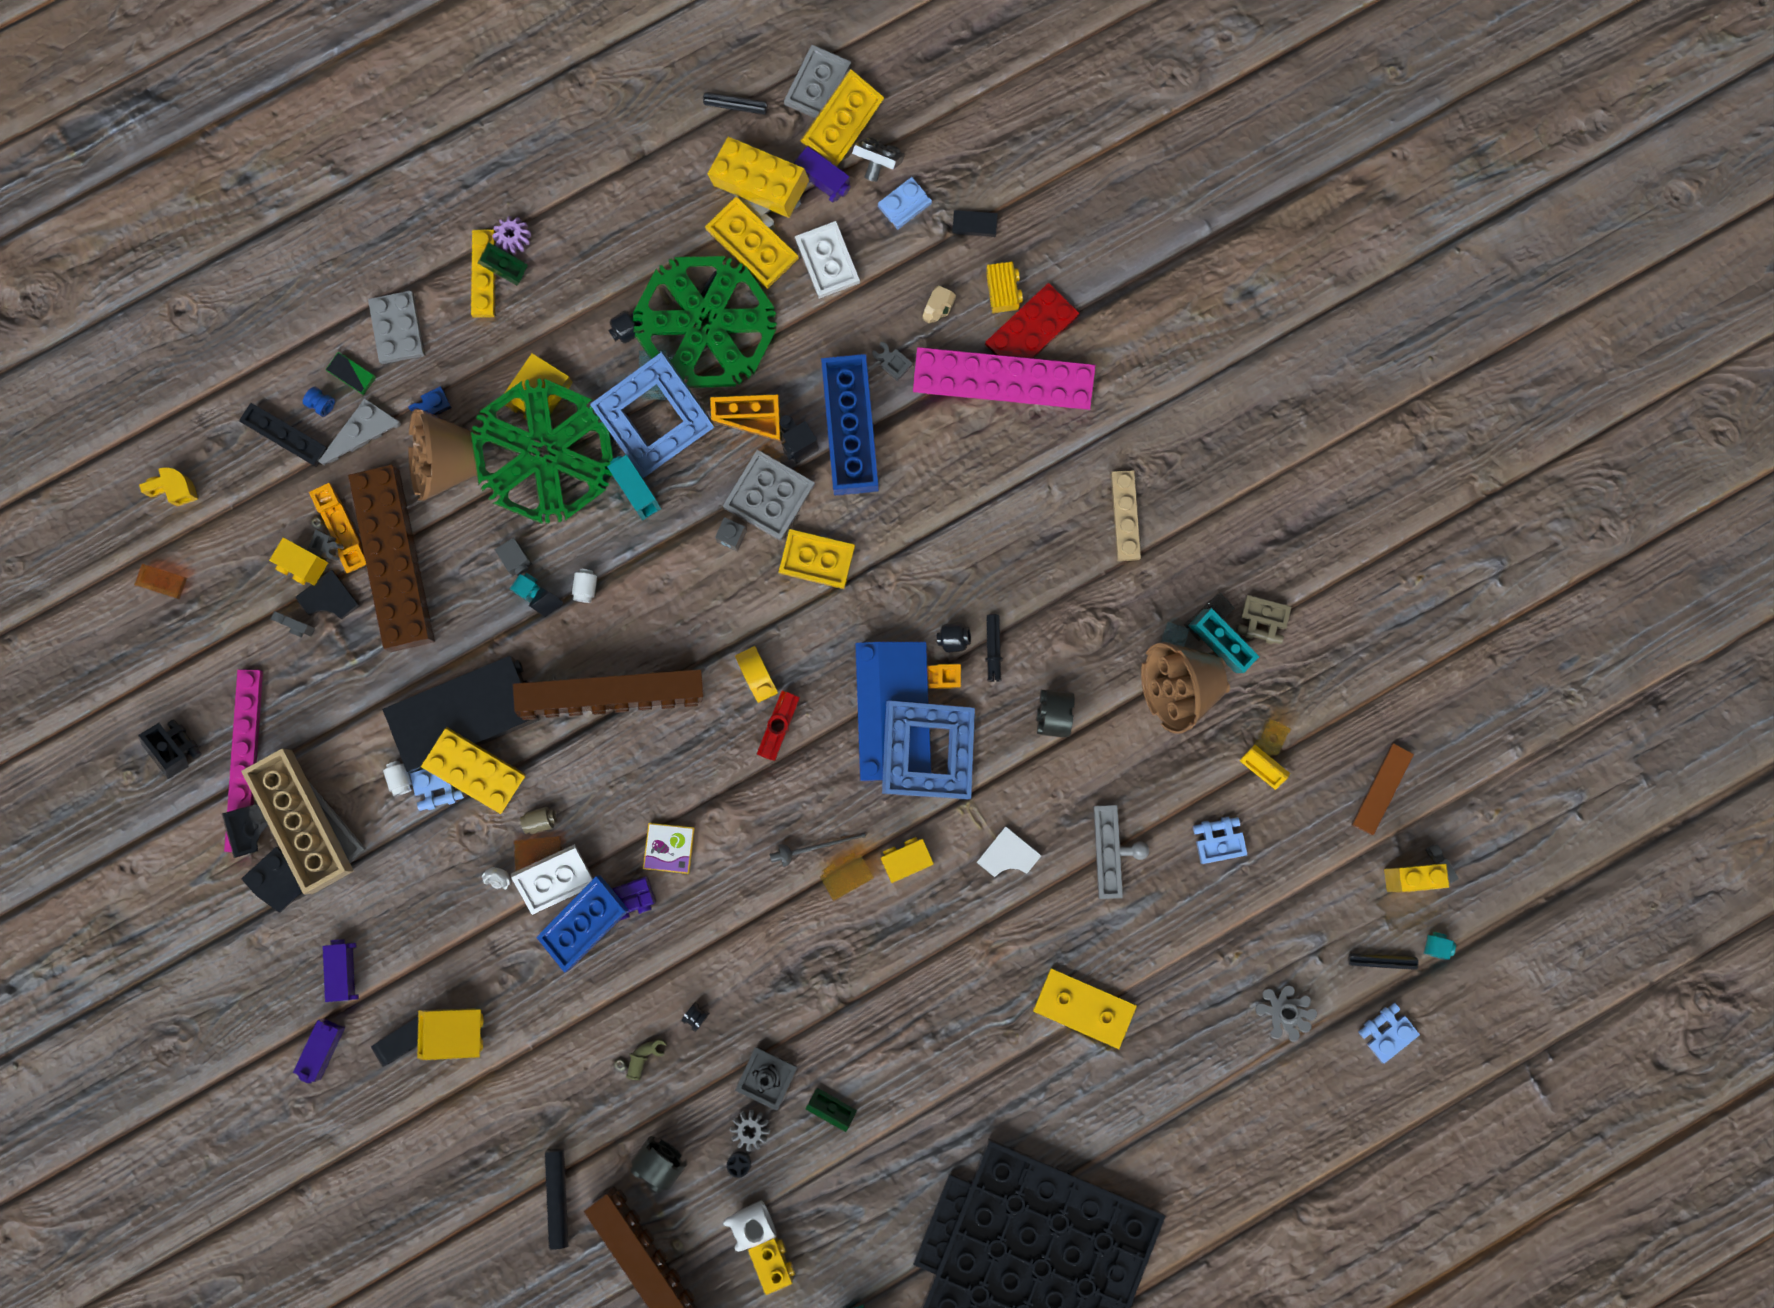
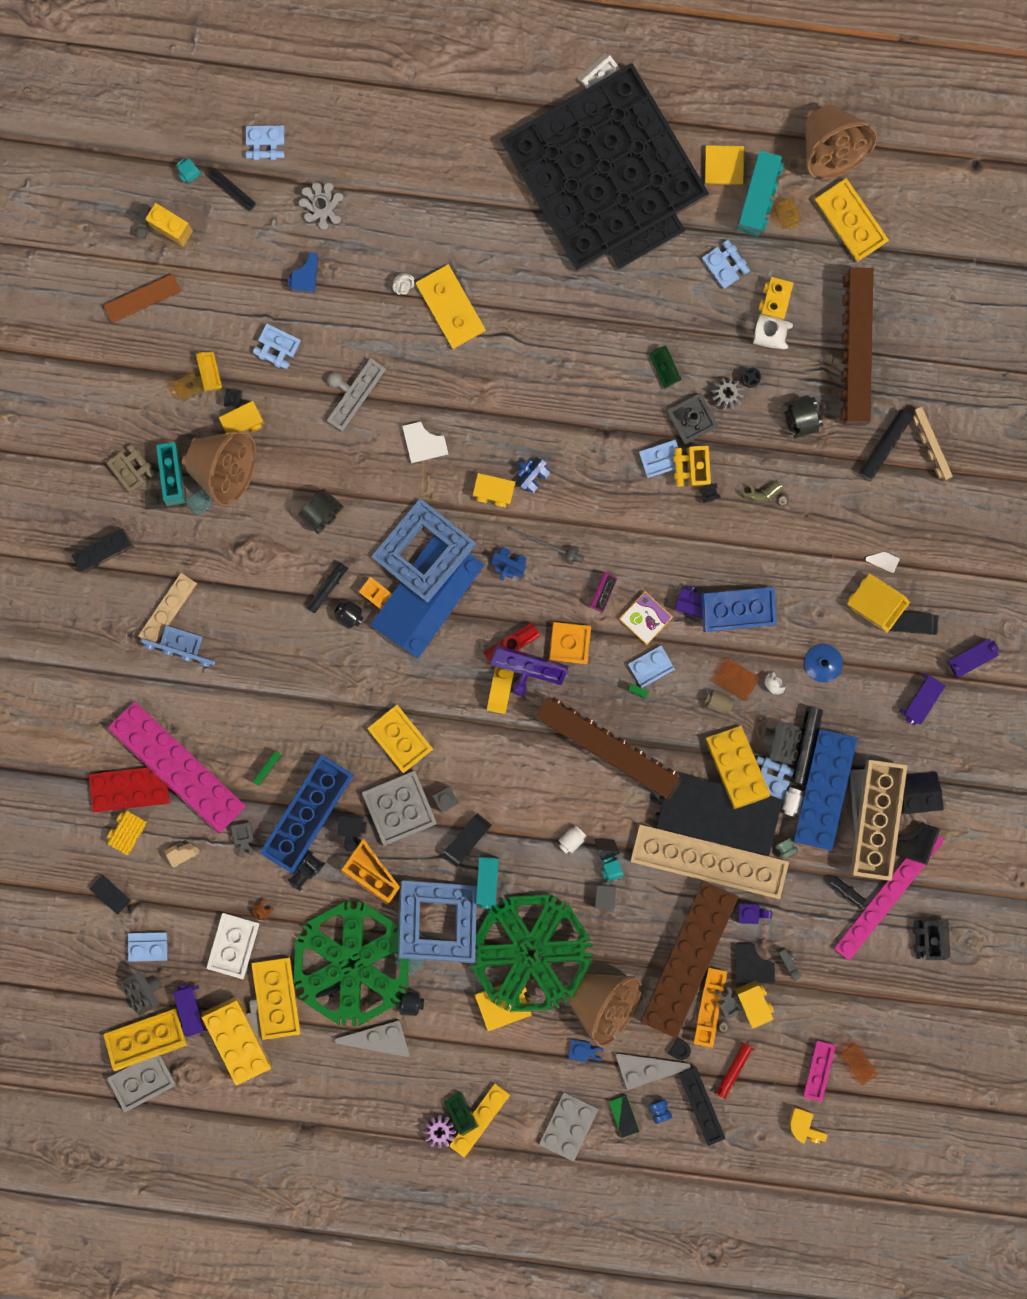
camera: 145 degrees left, 5 degrees up
(194, 547) = (819, 1071): none -> dark pink plate
(275, 489) = (734, 1070): none -> red pin
(284, 732) = (847, 892): none -> black pin
(340, 470) = (680, 1049): none -> black tile
(363, 642) = (750, 913): none -> dark purple brick
(372, 730) = (786, 848): none -> sand green wheel
(372, 813) = (826, 790): none -> blue brick
(423, 842) = (807, 745): none -> black brick
(437, 662) = (709, 861): none -> tan plate
(445, 827) = (784, 743): none -> dark grey plate
(476, 935) = (816, 670): none -> blue dish
(476, 1081) = (884, 561): none -> white sticker
(518, 1239) = (928, 437): none -> tan plate
(552, 879) = (737, 654): white plate -> none
(624, 772) = (638, 691): none -> green tile
(627, 279) = (383, 1038): none -> light grey wing
(629, 805) = (651, 666): none -> light blue plate
(683, 512) = (466, 840): none -> black beam
(723, 769) = (570, 643): none -> light orange plate
(726, 1034) = (697, 466): none -> yellow brick
(728, 841) = (603, 592): none -> slope
(735, 103) = (210, 1111): black axle -> none
(746, 715) = (527, 666): none -> dark purple plate
(767, 1015) = (659, 459): none -> light blue plate
(811, 377) = (306, 869): none -> black connector
(827, 307) = (260, 912): none -> dark orange plate
(838, 795) = (507, 566): none -> blue hips
(846, 876) = (541, 509): clear yellow brick -> none
(849, 1253) = (721, 268): none -> light blue plate
(885, 903) = (529, 472): none -> blue hips
(919, 440) = (267, 768): none -> green tile
(1089, 491) = (181, 643): none -> medium blue bracket
(1147, 995) = (403, 283): none -> white plate
(1196, 745) = (242, 419): none -> yellow brick
(1222, 758) = (232, 398): none -> black wheel
(1229, 522) = (102, 551): none -> black brick
(1245, 928) = (305, 278): none -> blue arch

